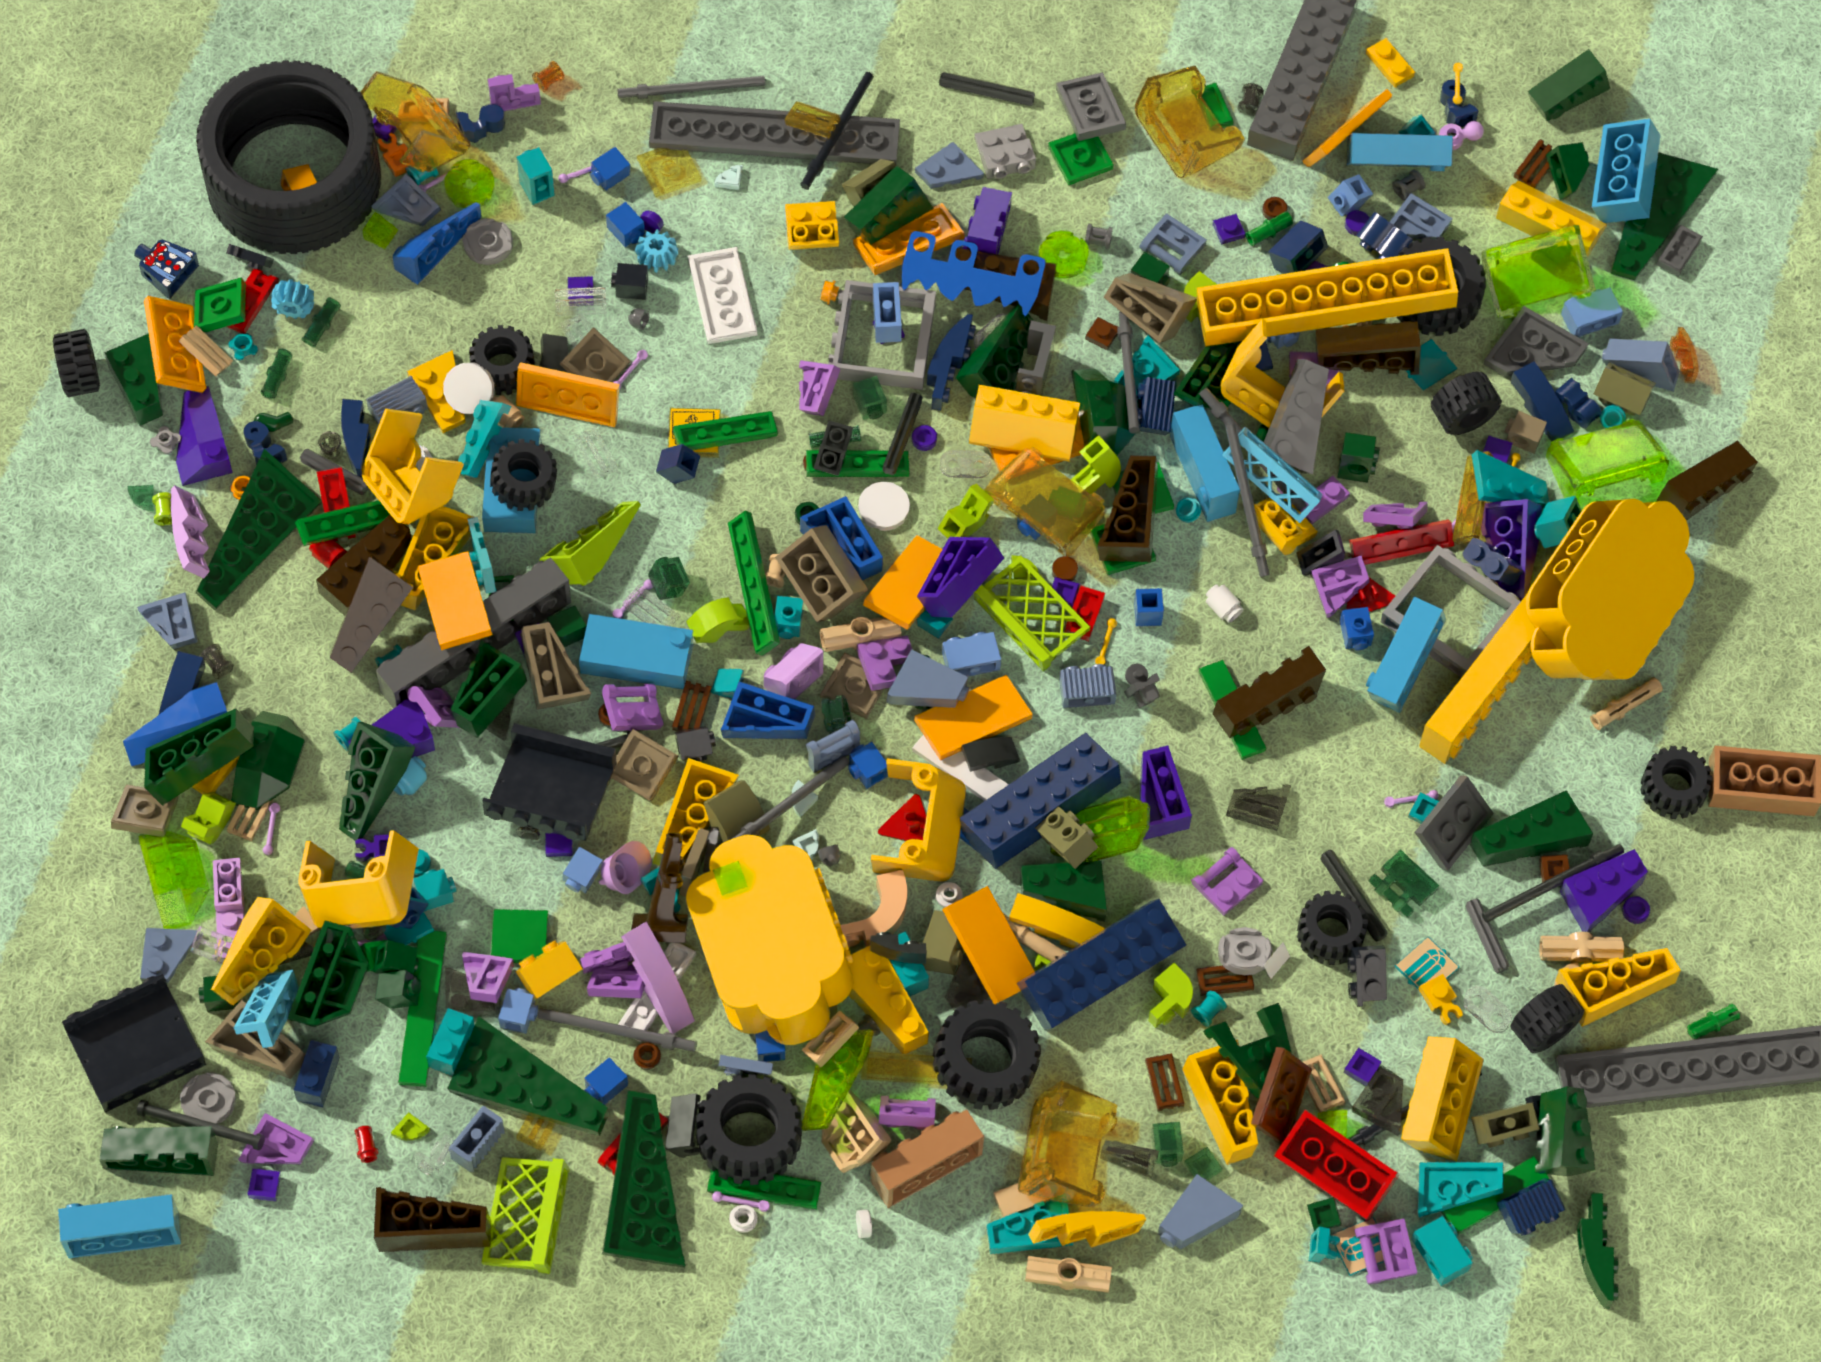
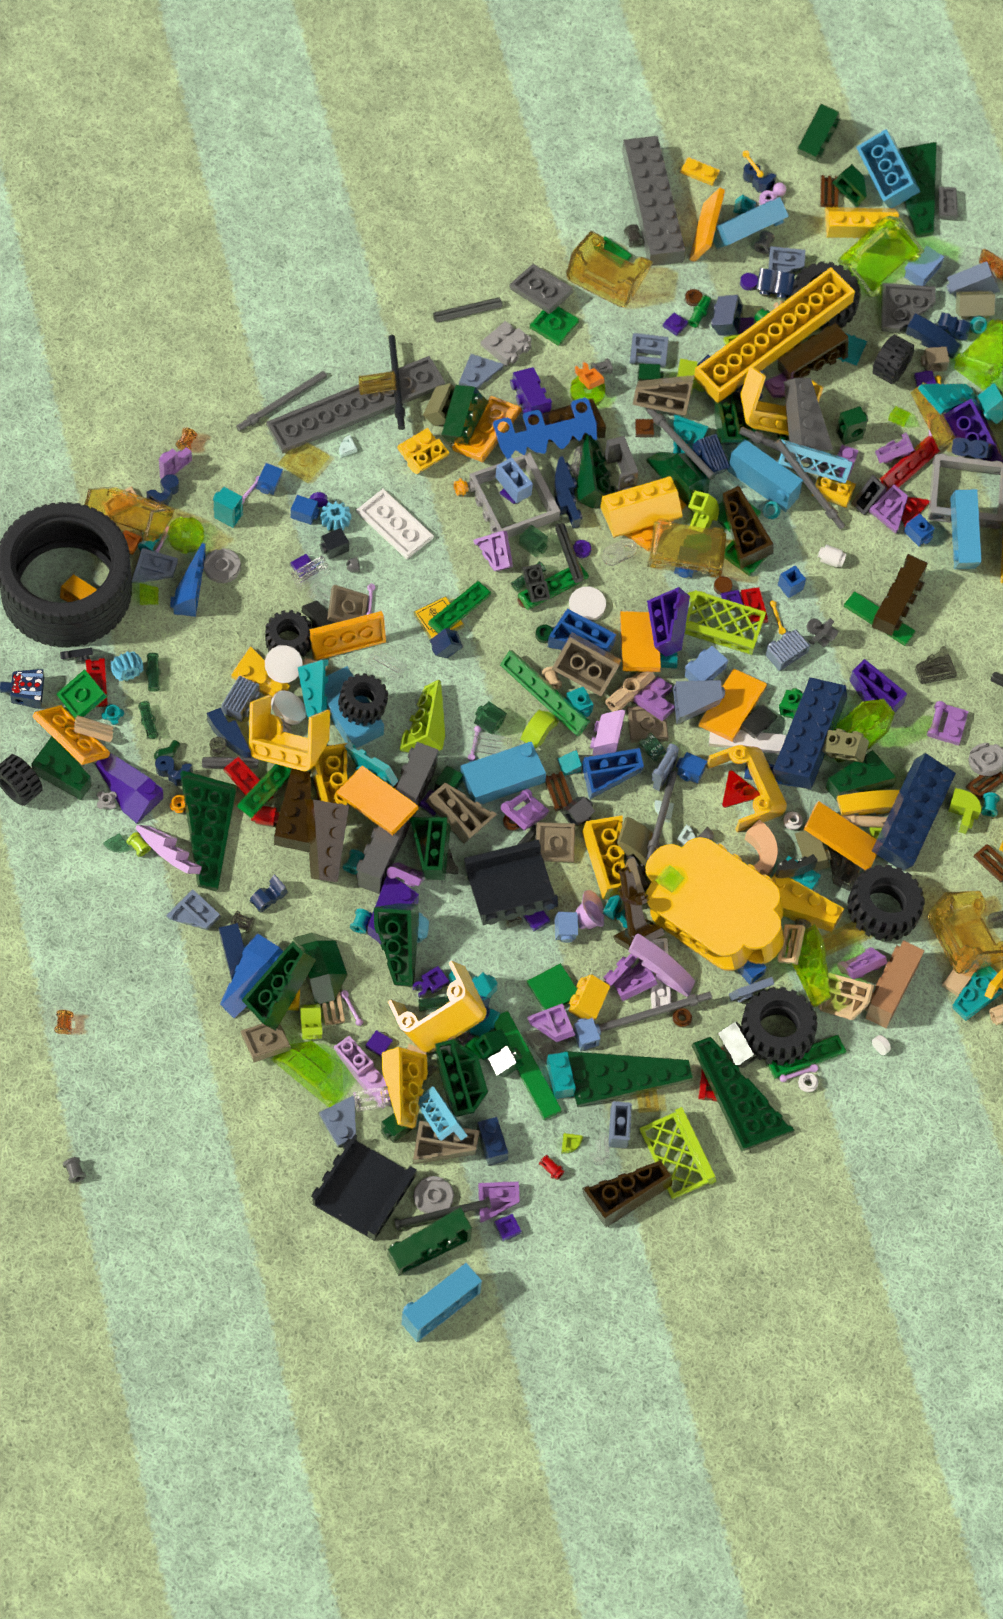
camera: 35 degrees left, 0 degrees up
(261, 646) = (265, 897): none -> dark blue leg
(272, 886) = (378, 1043): none -> dark purple tile
(442, 439) = (288, 707): none -> white tile
(606, 1081) = (670, 1045): blue brick -> none
(969, 515) = (644, 582): lime brick -> none
(1043, 749) = (790, 702): none -> green brick
(1071, 238) = (589, 377): none -> orange plate
(1350, 195) = (736, 266): medium blue brick -> none
(1432, 478) = (899, 416): none -> clear neon green slope

